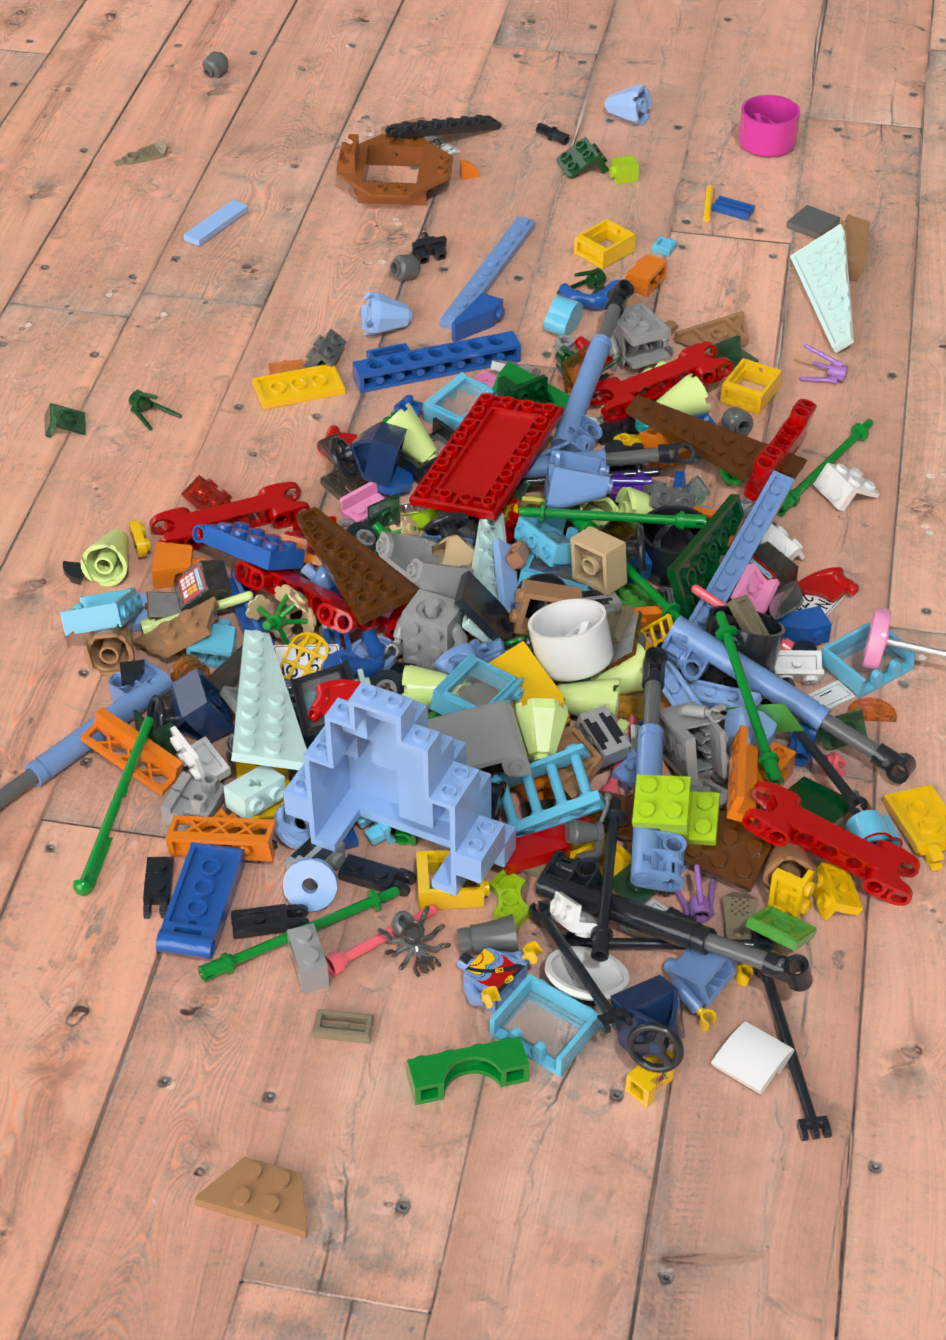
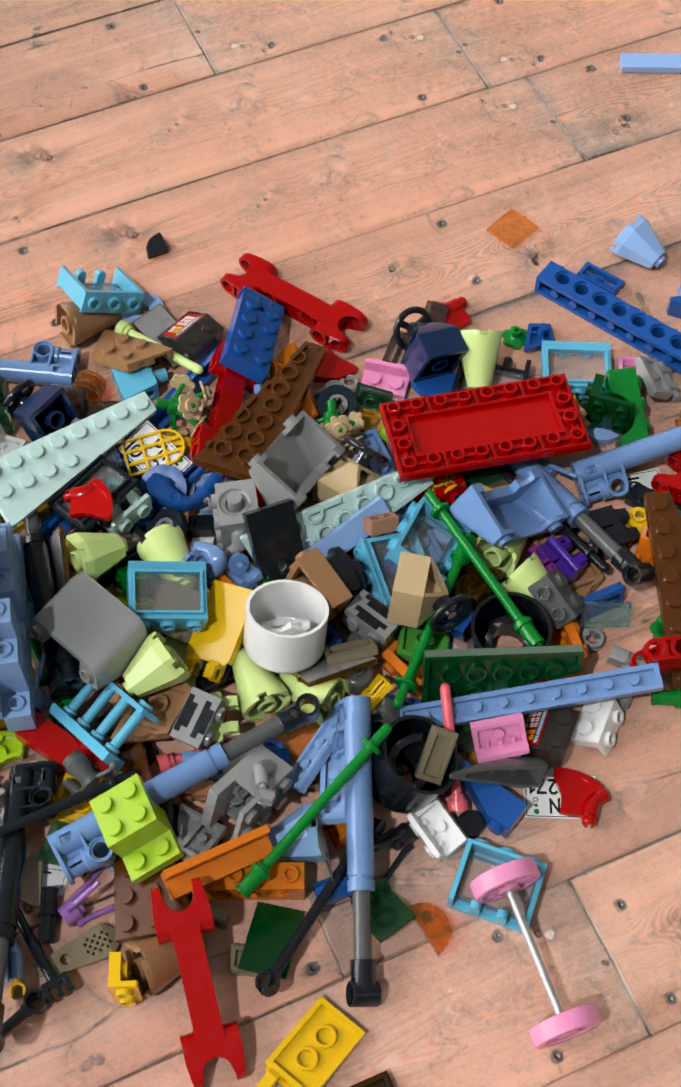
camera: 55 degrees right, 15 degrees up
(65, 419) = (321, 130): clear green piece -> none
(107, 558) = (180, 254): yellowish green cone -> none
(131, 670) = (52, 348): black tile -> none
(137, 534) = (220, 260): yellow plate -> none
(141, 402) = (383, 162): dark green plant -> none
(170, 562) = (207, 297): orange torso -> none
(204, 494) = (307, 271): clear red bracket -> none
(298, 386) = (500, 245): yellow tile -> none
(326, 349) = (556, 236): dark grey bracket -> none
(781, 927) = (82, 993): bright green tile -> none
(832, 694) = (428, 878): white sticker -> none
(835, 892) = (163, 1018): yellow bracket -> none
(838, 763) = (326, 926): coral plate -> none
(873, 827) = (254, 1014): medium azure piece -> none

